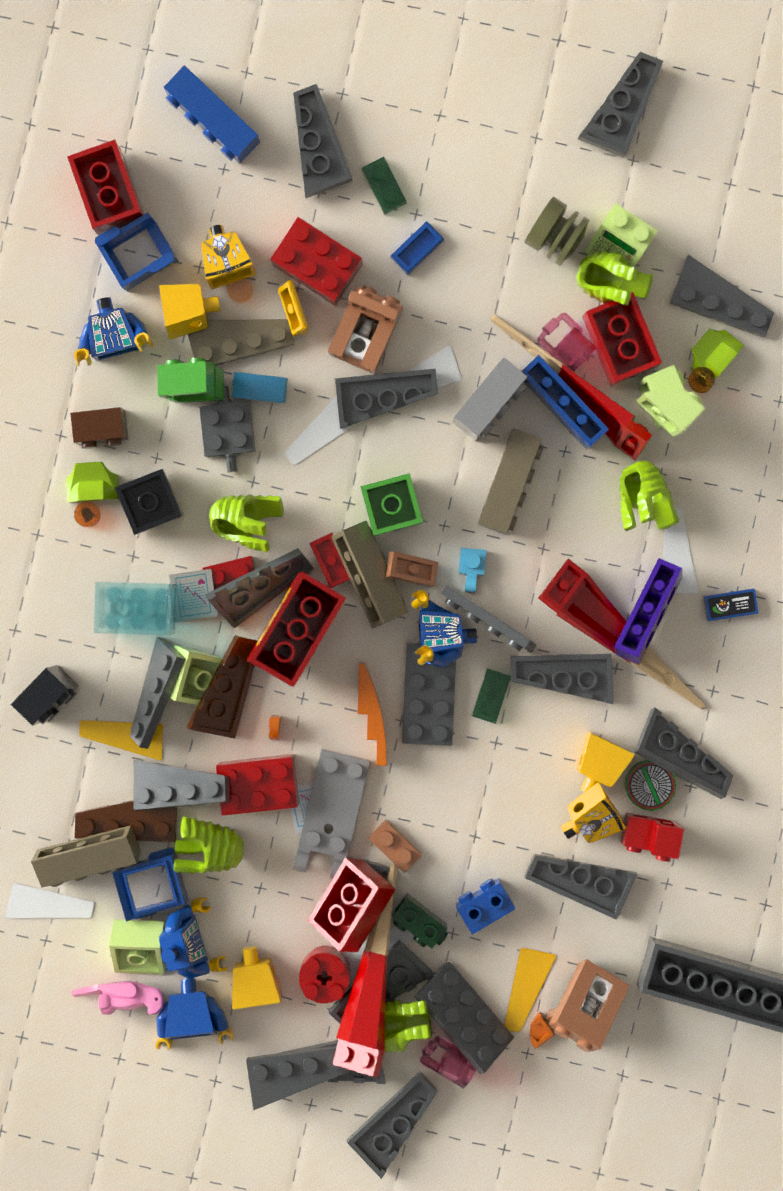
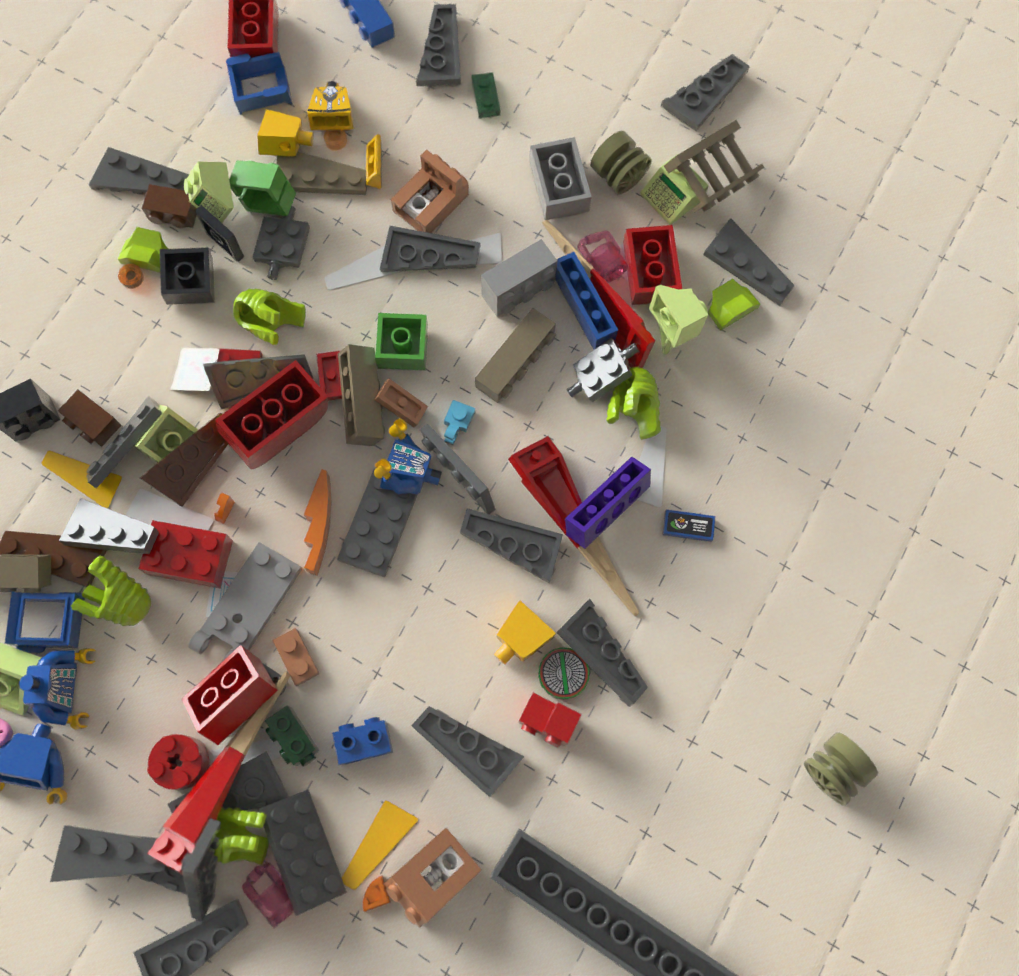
camera: 20 degrees right, 15 degrees down
(40, 400) = (131, 173): none -> dark grey wing
(109, 679) = (88, 417): none -> reddish brown brick
(110, 334) = (210, 137): torso -> none
(135, 608) = (137, 361): clear light blue brick -> none
(142, 406) = (210, 187): none -> yellowish green slope
(165, 446) = (219, 233): none -> black tile
(211, 748) = (151, 507): none -> white sticker
(254, 981) = (107, 747): yellow torso -> none
(259, 387) = (322, 215): dark azure slope -> none
(316, 261) = (407, 130): red brick -> none
(389, 1068) = (199, 871): none -> dark grey wing
(417, 248) = (497, 149): blue tile -> none
(491, 695) = (437, 541): clear green plate -> none
(496, 268) = (560, 178): none -> light grey brick
(593, 816) = (497, 682): yellow torso -> none
(603, 473) = (602, 369): none -> plate
(611, 278) = (658, 208): lime hair -> none
(637, 202) = (711, 145): none -> dark tan fence
(701, 379) = (715, 321): clear orange tile -> none

